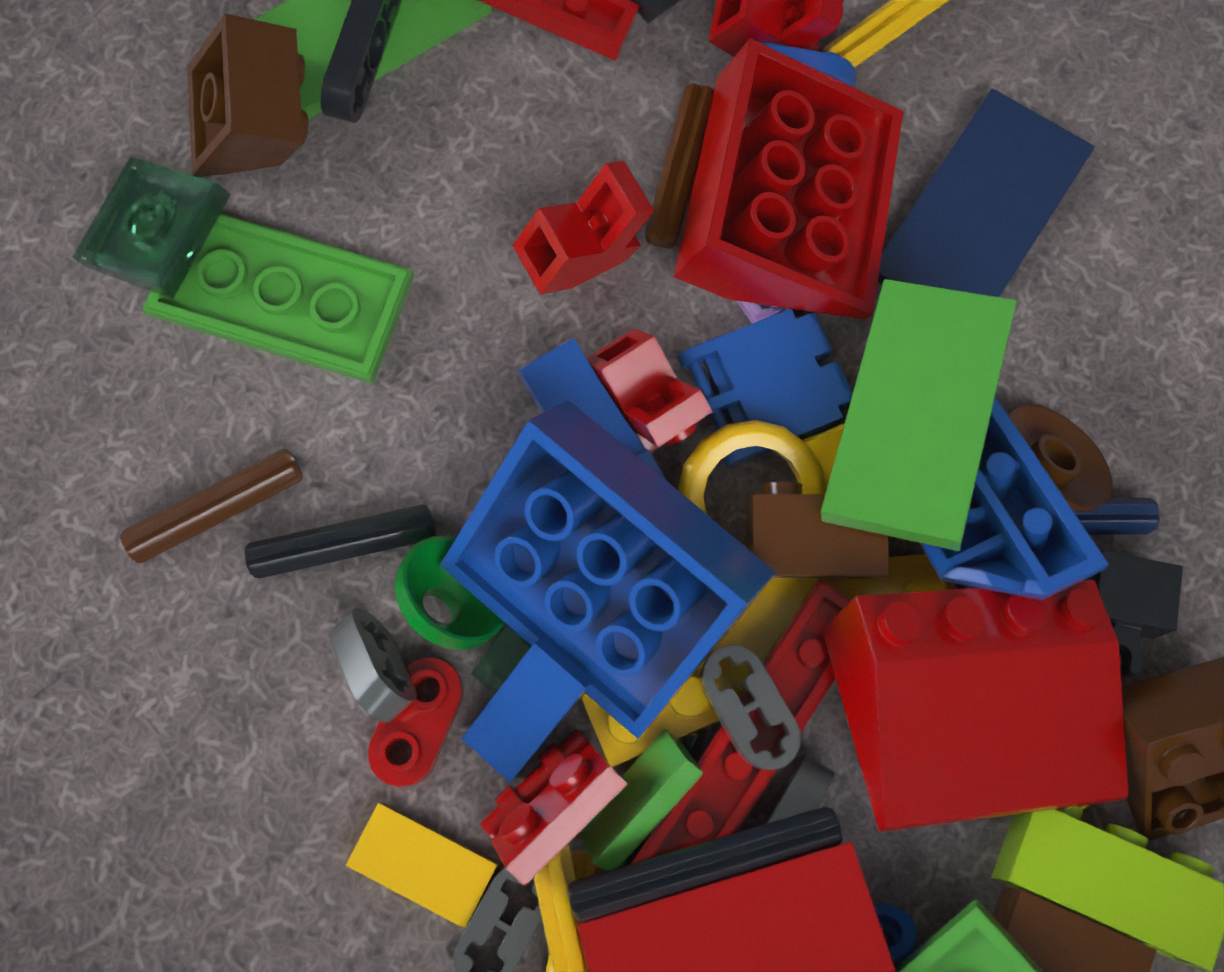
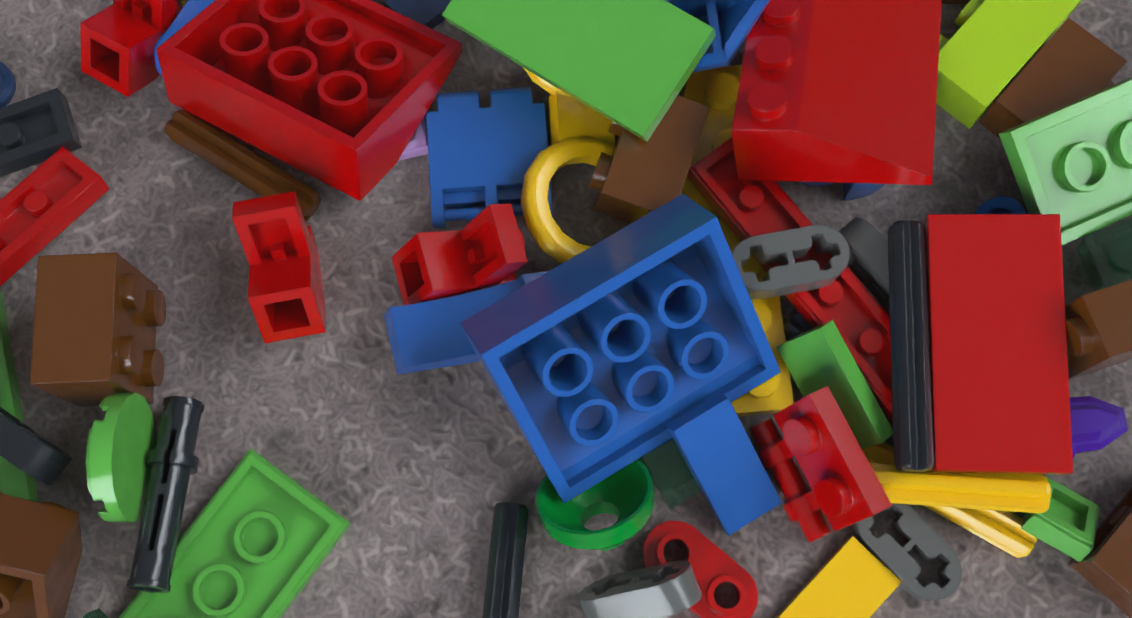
camera: 70 degrees left, 0 degrees up
(347, 212) = (166, 494): none -> black pin
(362, 160) = (119, 455): none -> bright green tile
(469, 94) = (95, 328): none -> reddish brown brick

